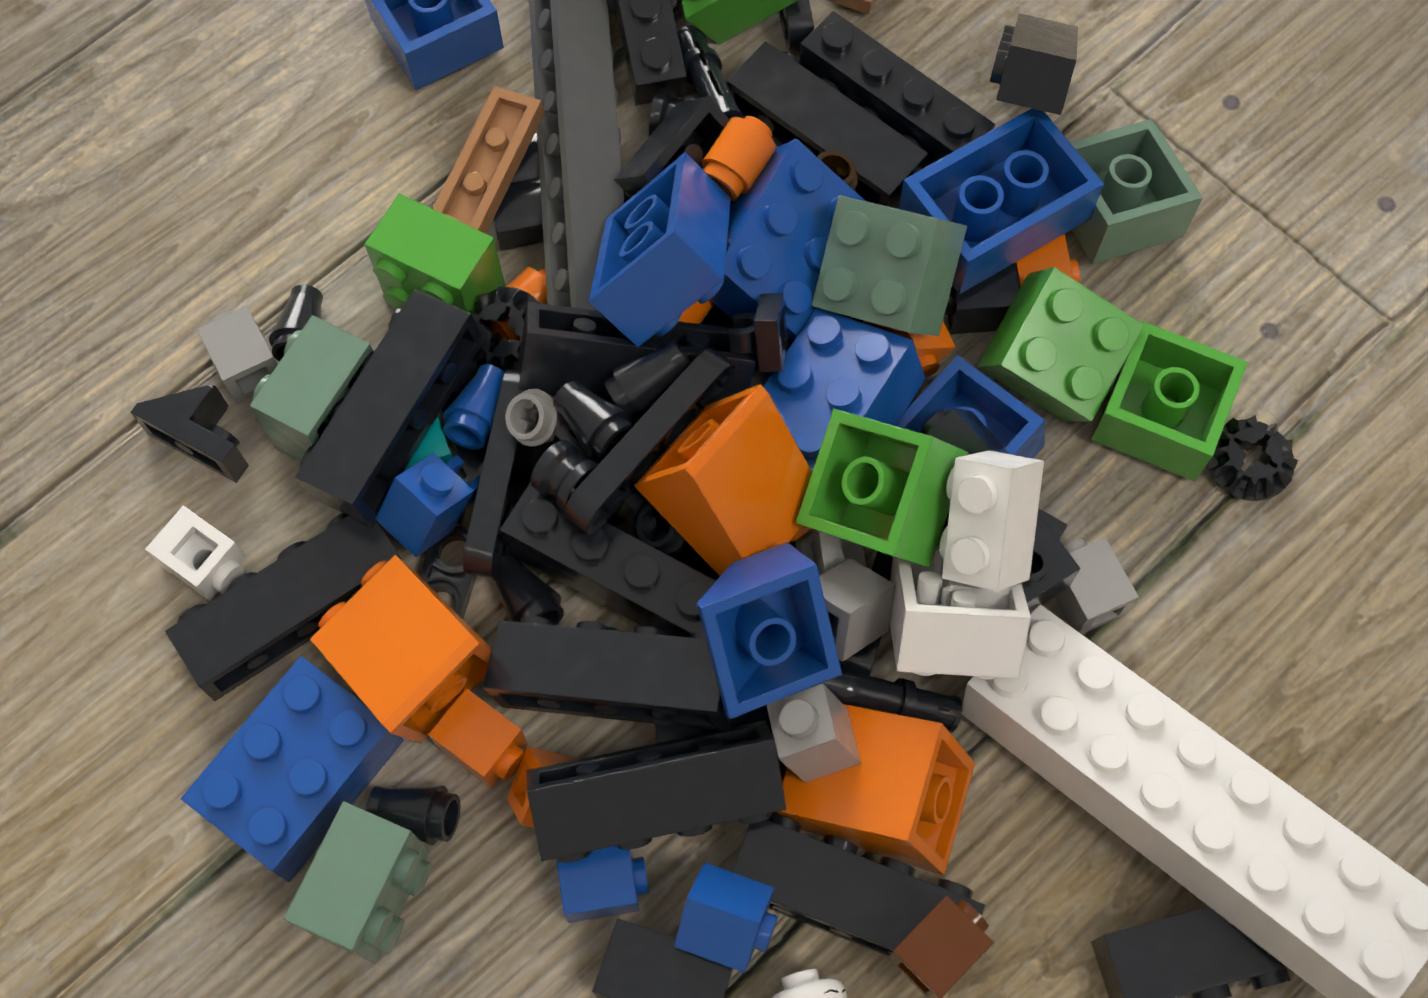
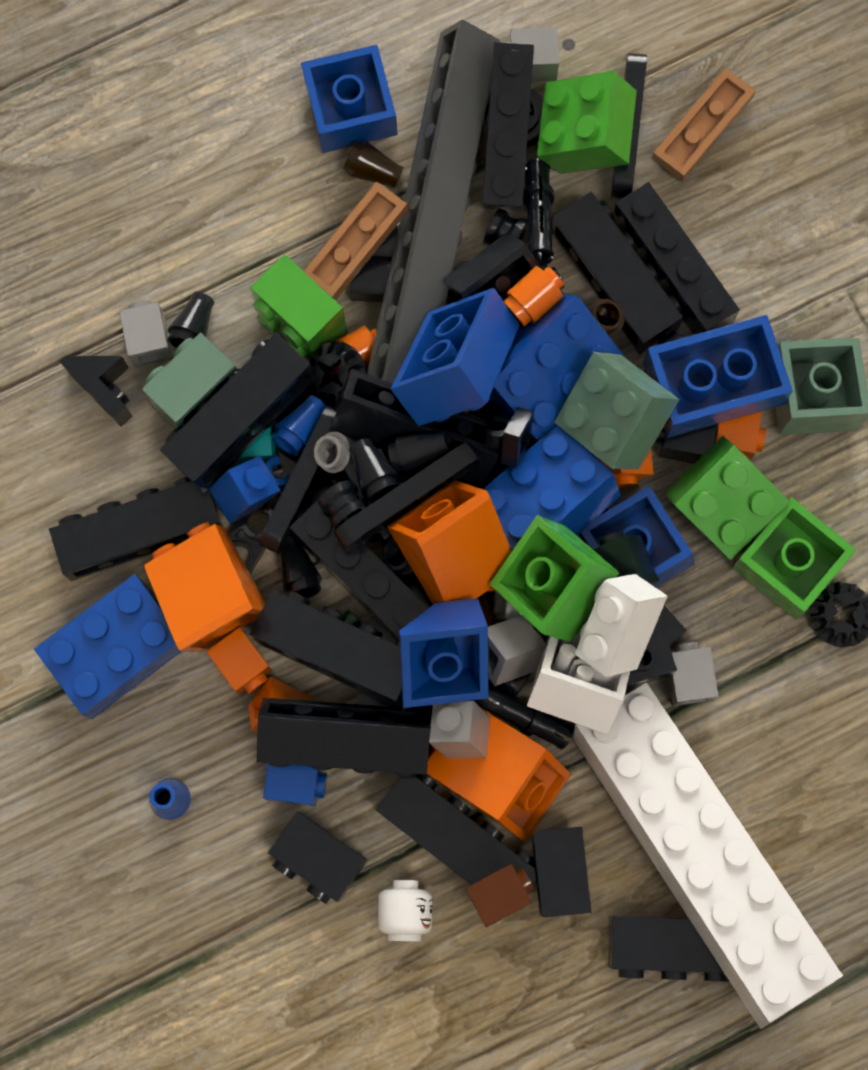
camera: 20 degrees right, 10 degrees up
(190, 540) = (73, 468): white brick -> none
(360, 883) = (136, 740): sand green brick -> none
(424, 810) = (187, 699): black cone -> none
(439, 968) = (178, 802): none -> blue cone
(473, 81) = (372, 165): none -> dark brown cone
(726, 918) = (367, 832): blue brick -> none
(1012, 894) = (561, 872): none -> black panel
(1035, 63) = (781, 273): black brick -> none

